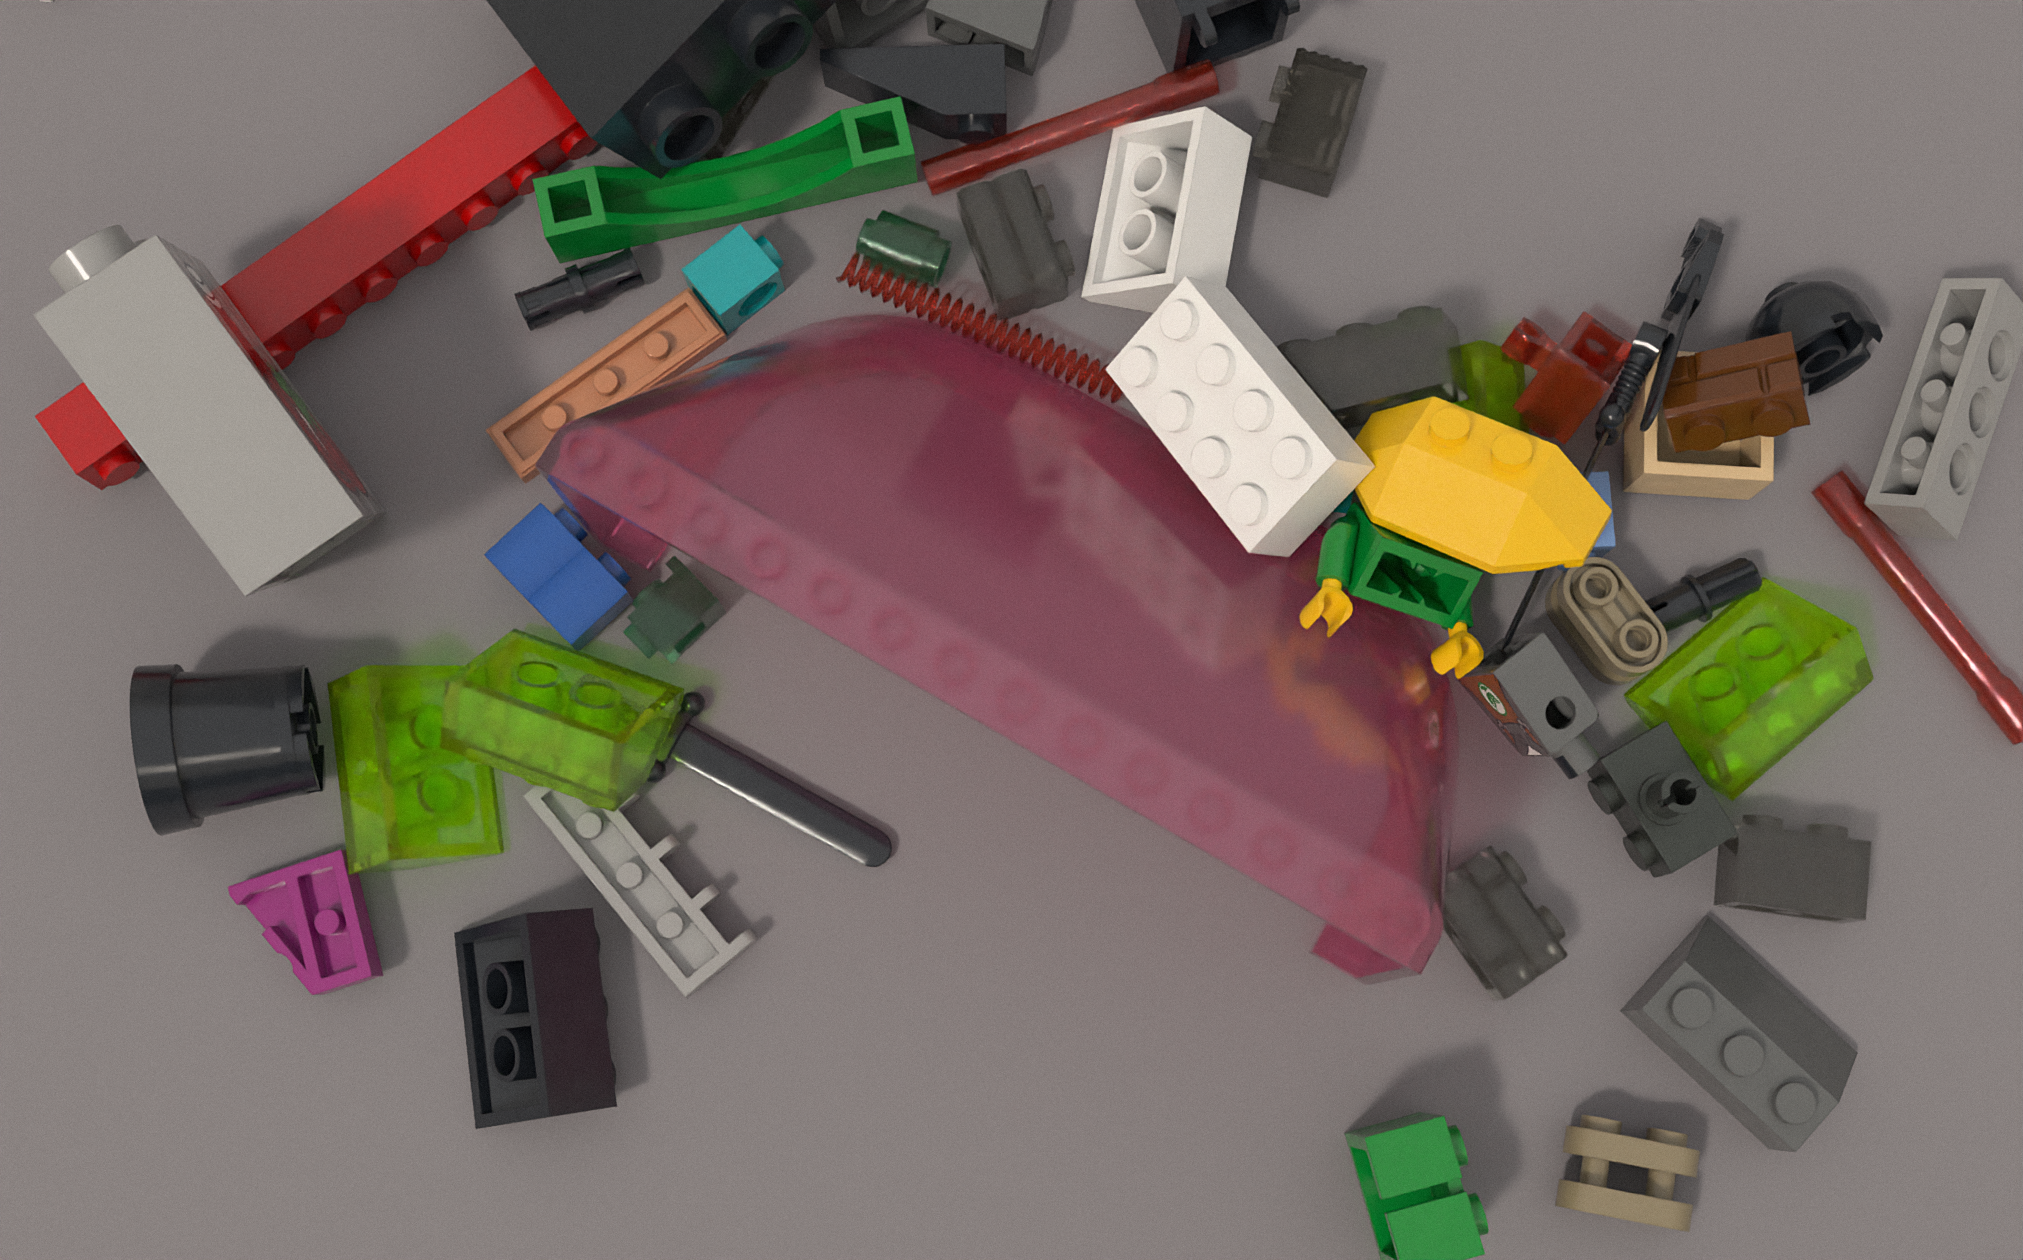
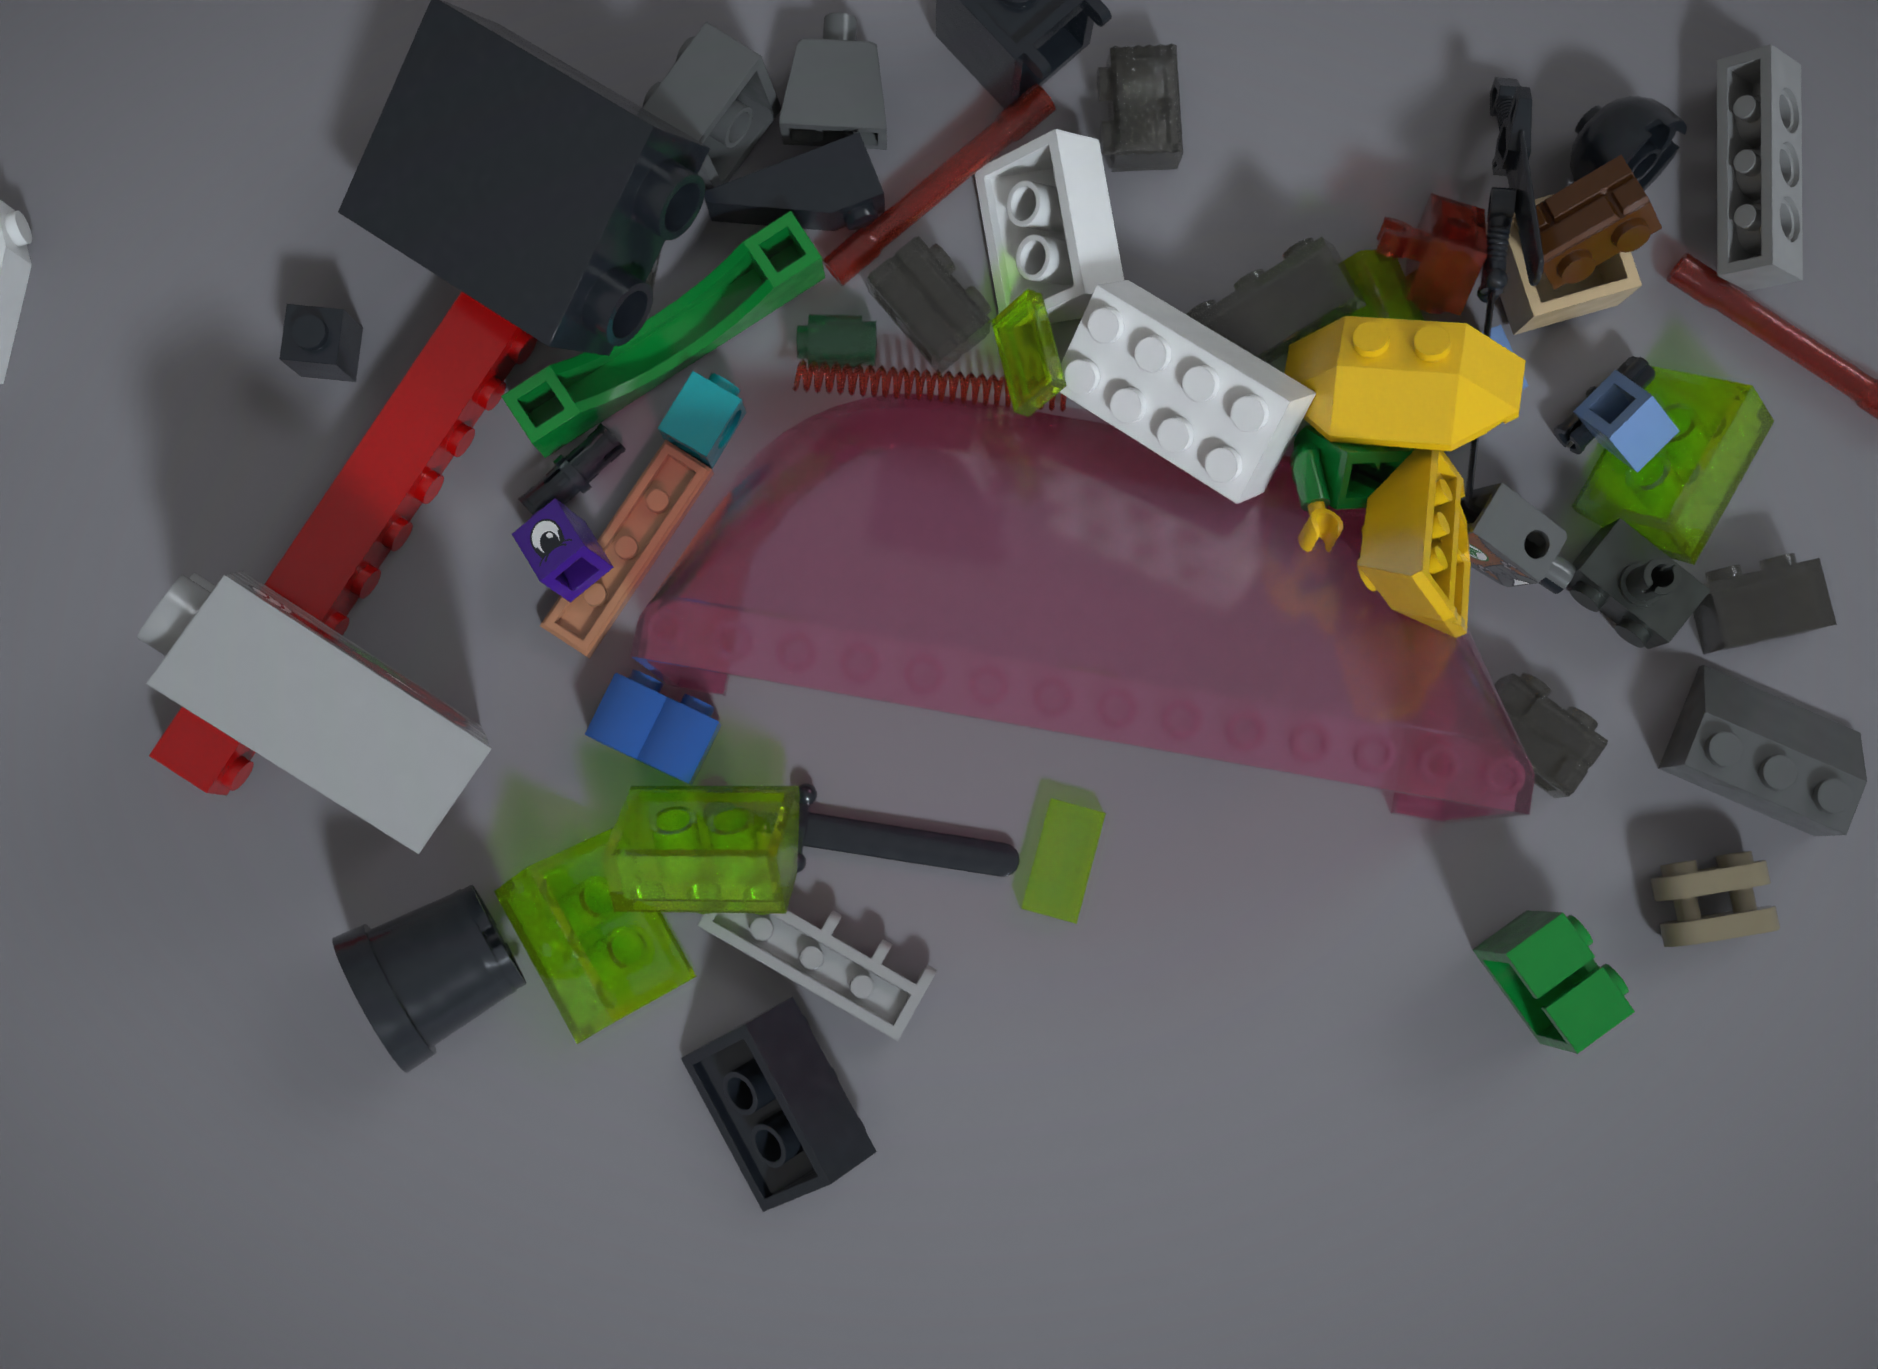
camera: 25 degrees left, 5 degrees up
(315, 920) = (562, 1092): magenta wing -> none
(378, 68) = (321, 342): none -> black brick
(536, 359) = (562, 550): none -> dark purple brick
(672, 613) = (761, 725): clear green brick -> none
(936, 872) = (1063, 860): none -> clear neon green tile
(1094, 326) = (1028, 353): none -> clear neon green tile
(1428, 660) = (1419, 542): none -> yellow wedge
(1606, 622) = (1542, 453): dark tan brick -> none
(1708, 619) = (1626, 420): none -> medium blue brick

